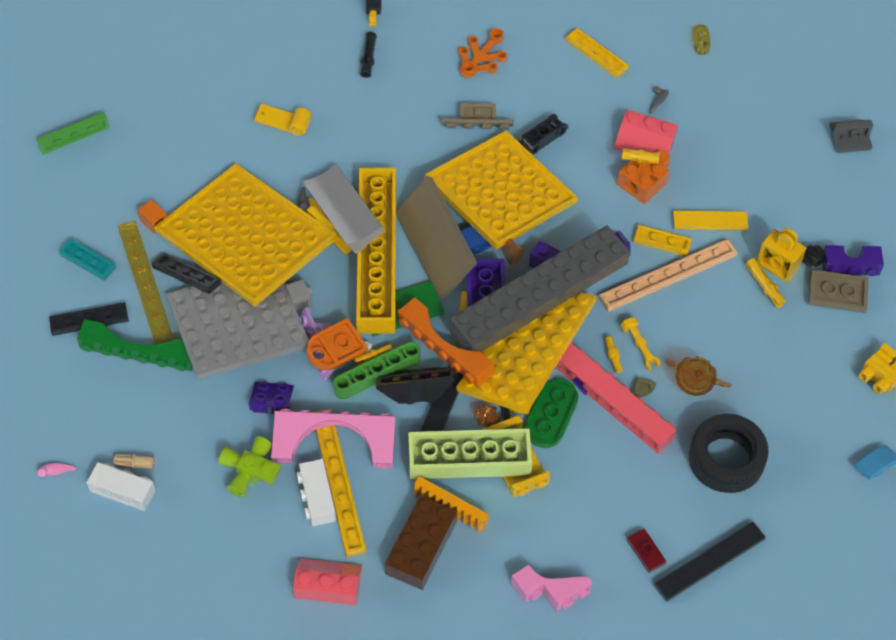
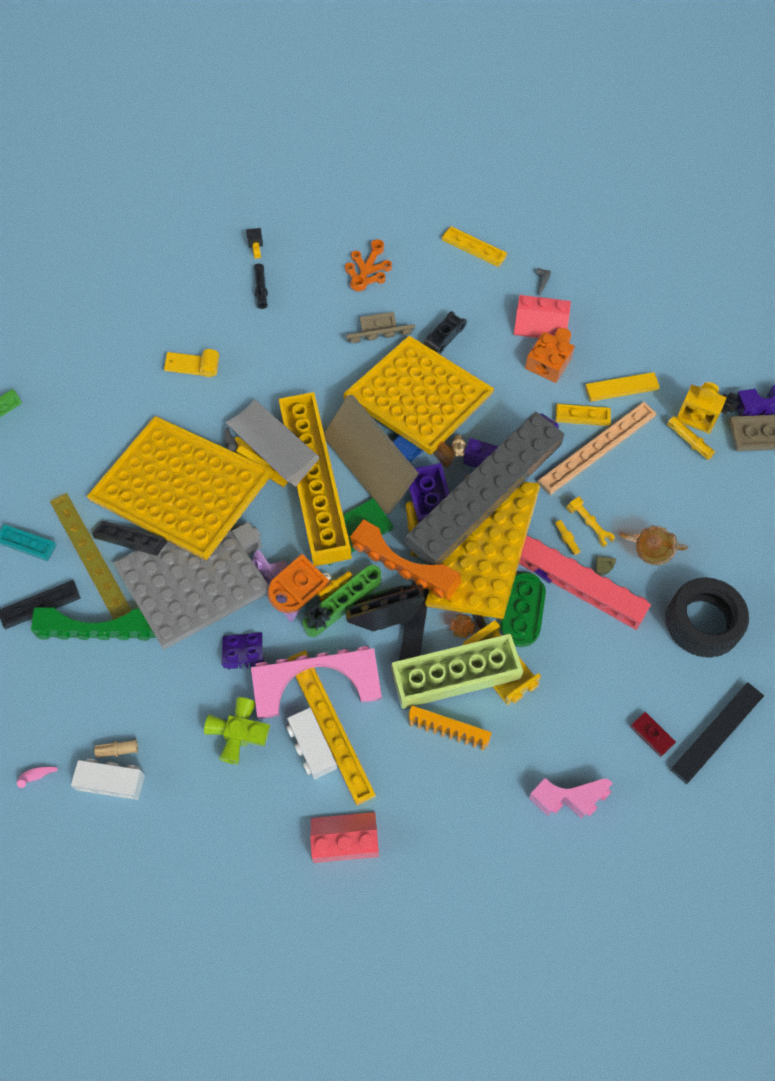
camera: 10 degrees left, 5 degrees up
(151, 214) = (81, 484): orange brick -> none
(348, 378) = (317, 611): none -> black gear
(421, 542) = (429, 776): reddish brown brick -> none
(527, 246) = (458, 445): none -> tan axle
(640, 156) = (545, 337): yellow pin -> none
(697, 39) = (570, 217): clear yellow beam -> none
(852, 135) = (729, 281): dark grey bracket -> none

